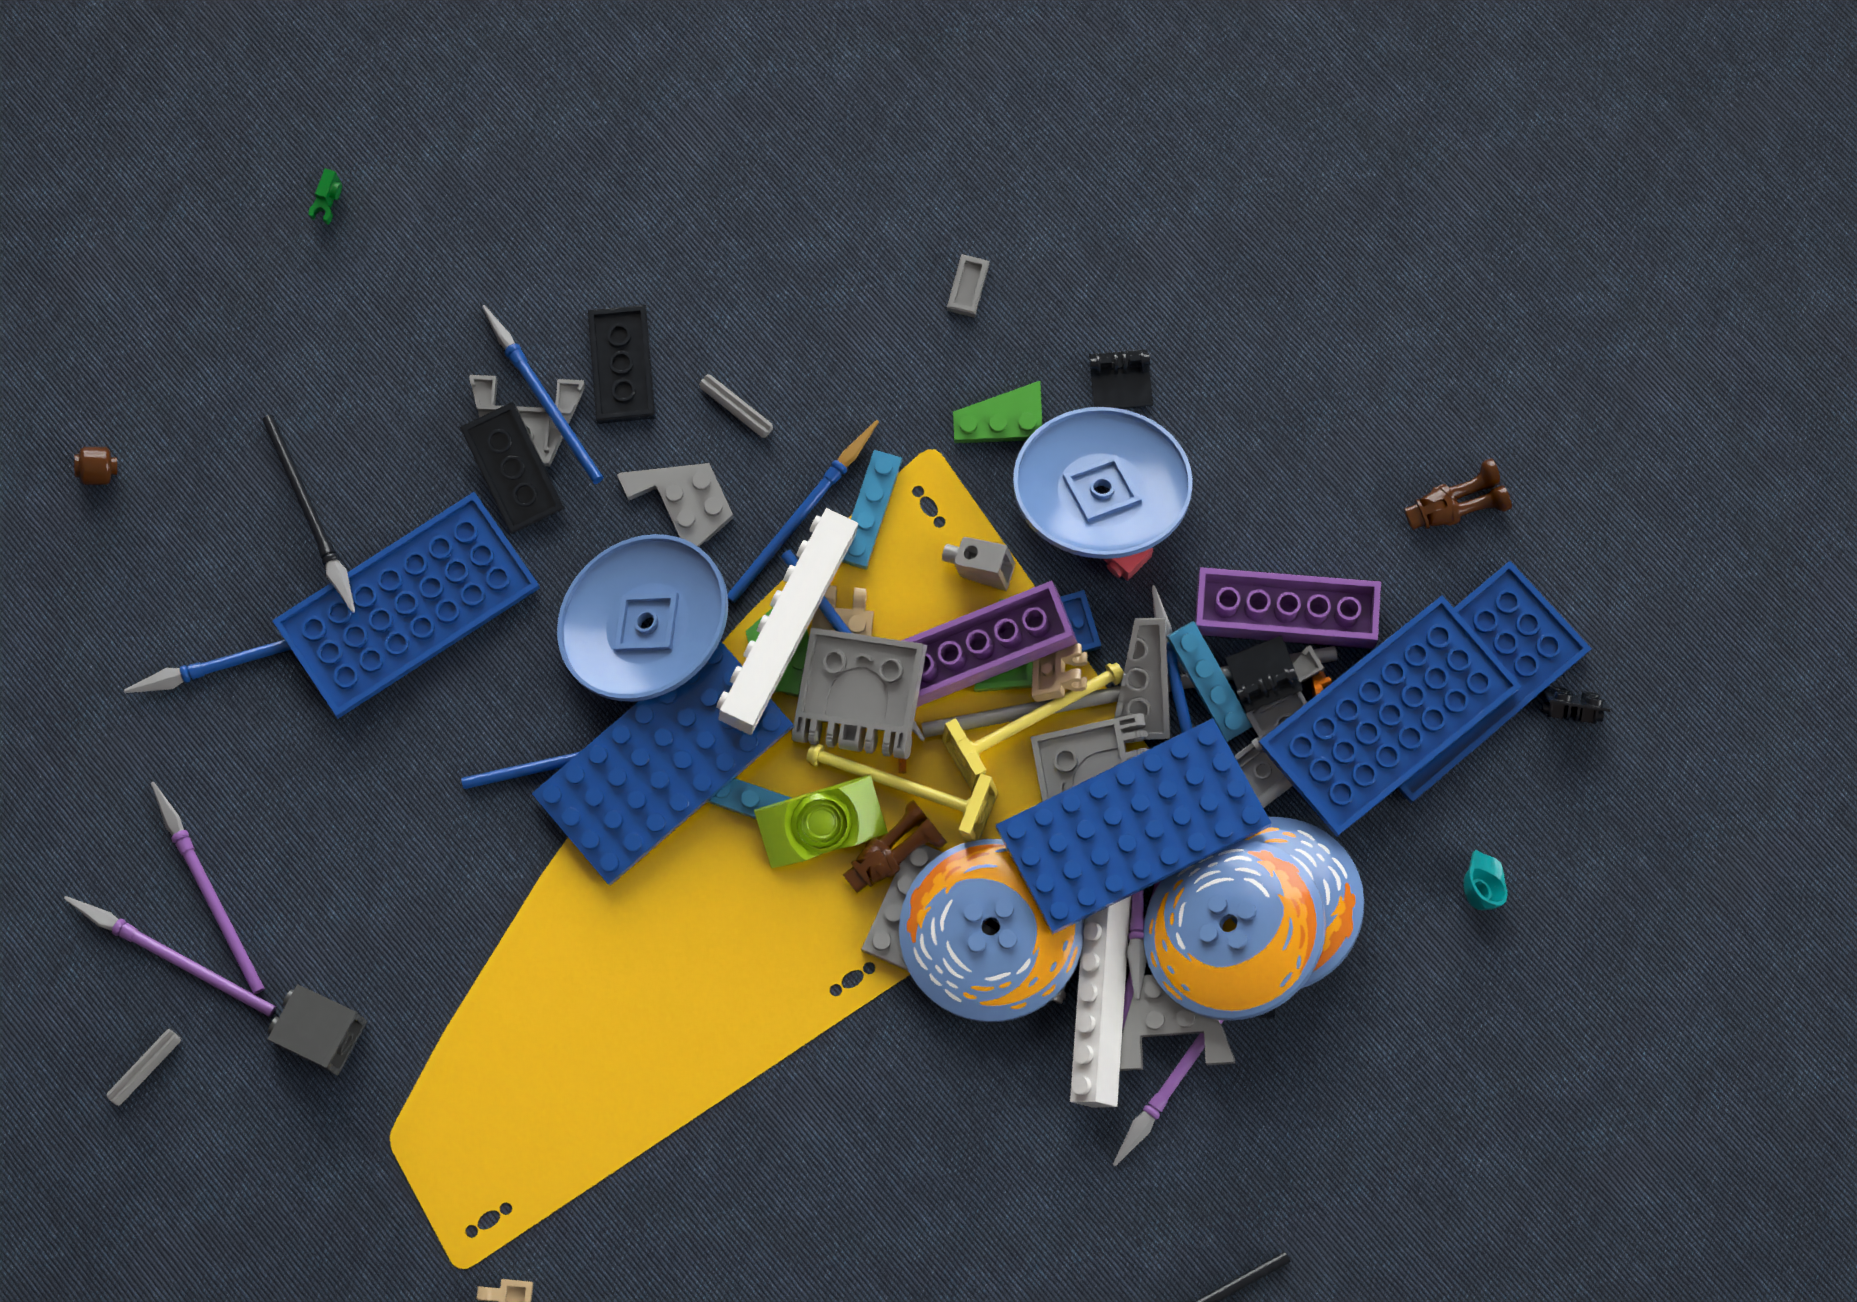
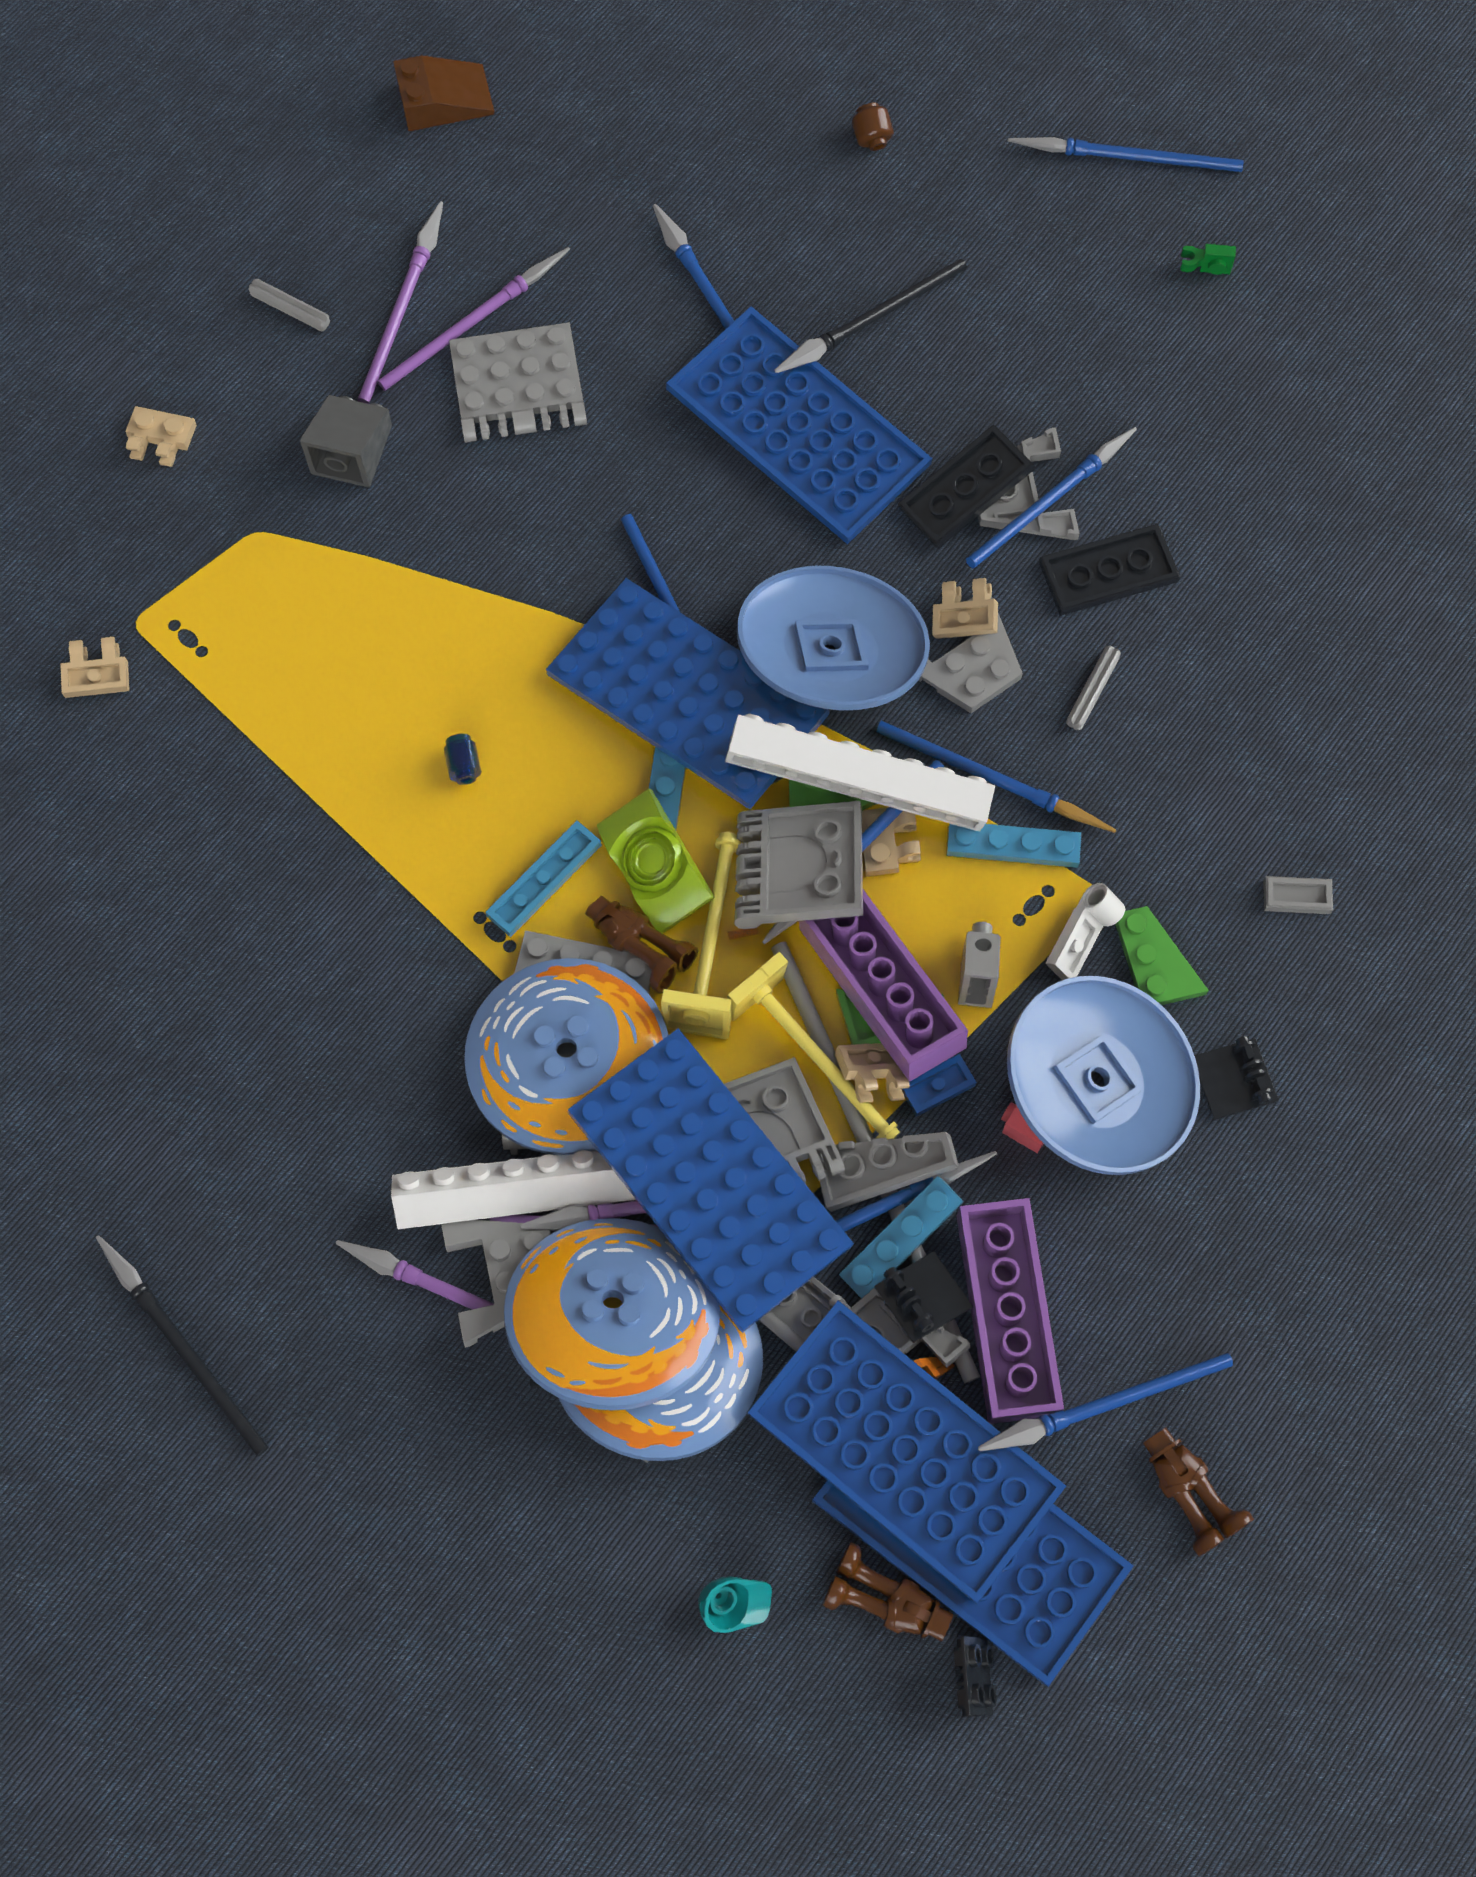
camera: 75 degrees right, 5 degrees down
(170, 277) = (1083, 148): none -> blue piece
(253, 1214) = (159, 428): none -> tan plate
(284, 856) = (515, 378): none -> light grey hinge
(645, 499) = (967, 617): none -> tan plate
(681, 976) = (462, 759): none -> brick
(815, 923) = (543, 878): none -> dark azure plate
(964, 470) = (1095, 909): none -> white plate
(1393, 611) = (1031, 1430): none -> blue piece
(1509, 745) = (904, 1611): none -> reddish brown piece

